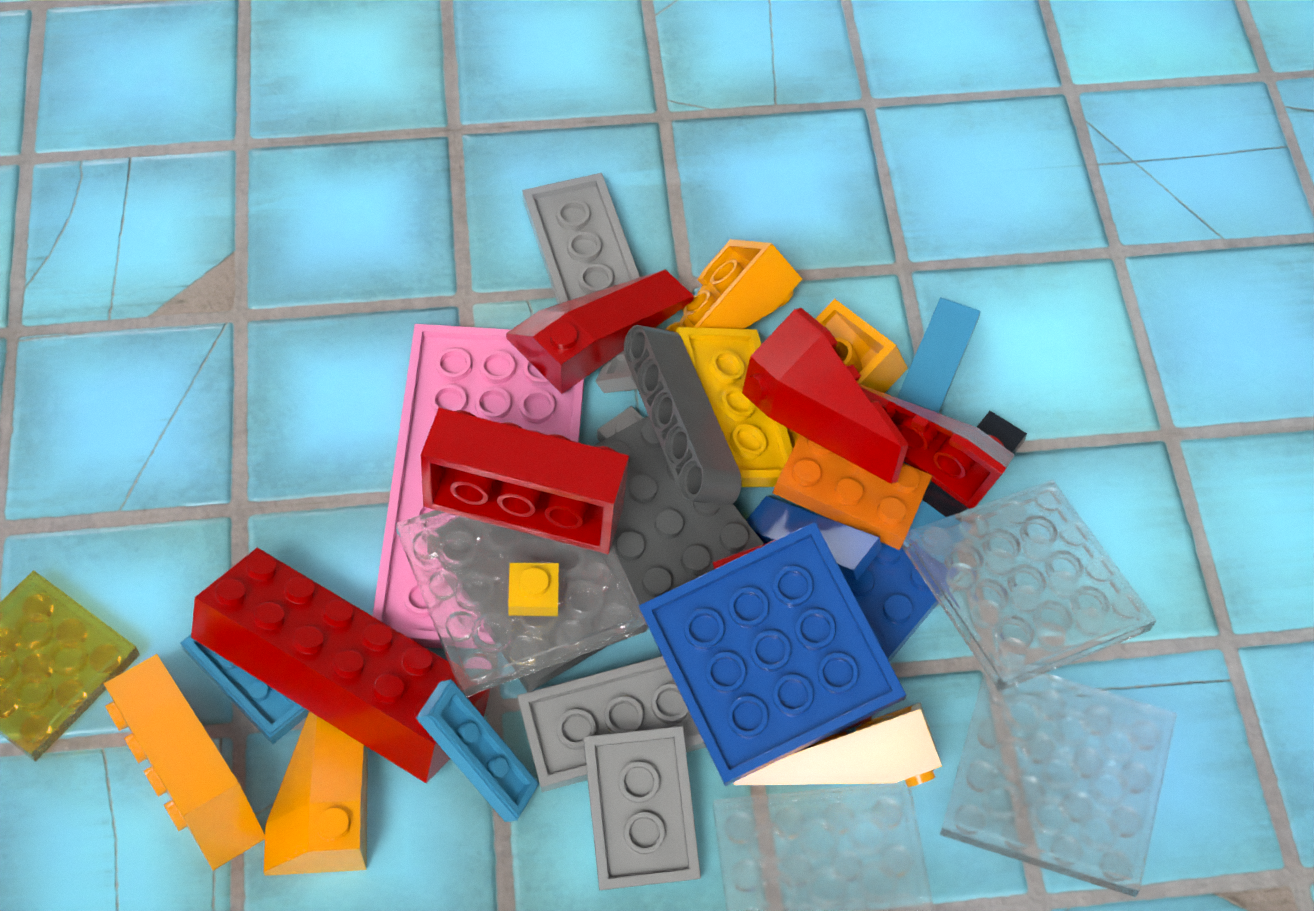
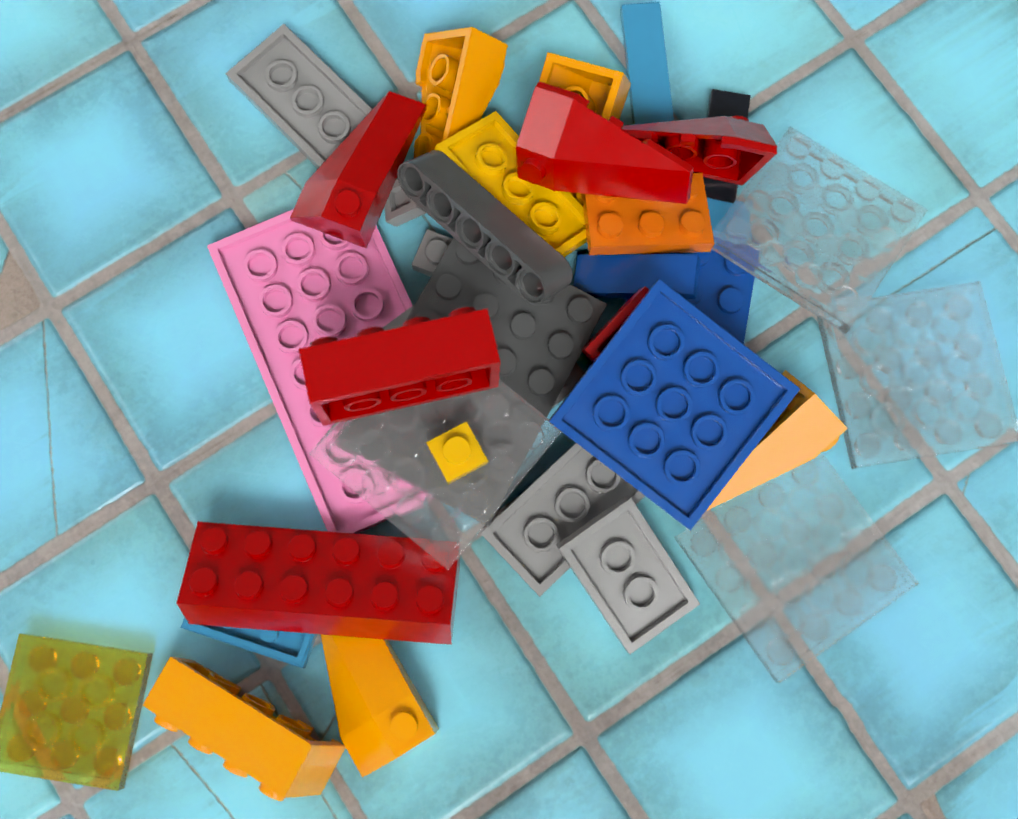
camera: 25 degrees left, 20 degrees up
(477, 750) = (479, 603): dark azure tile -> none

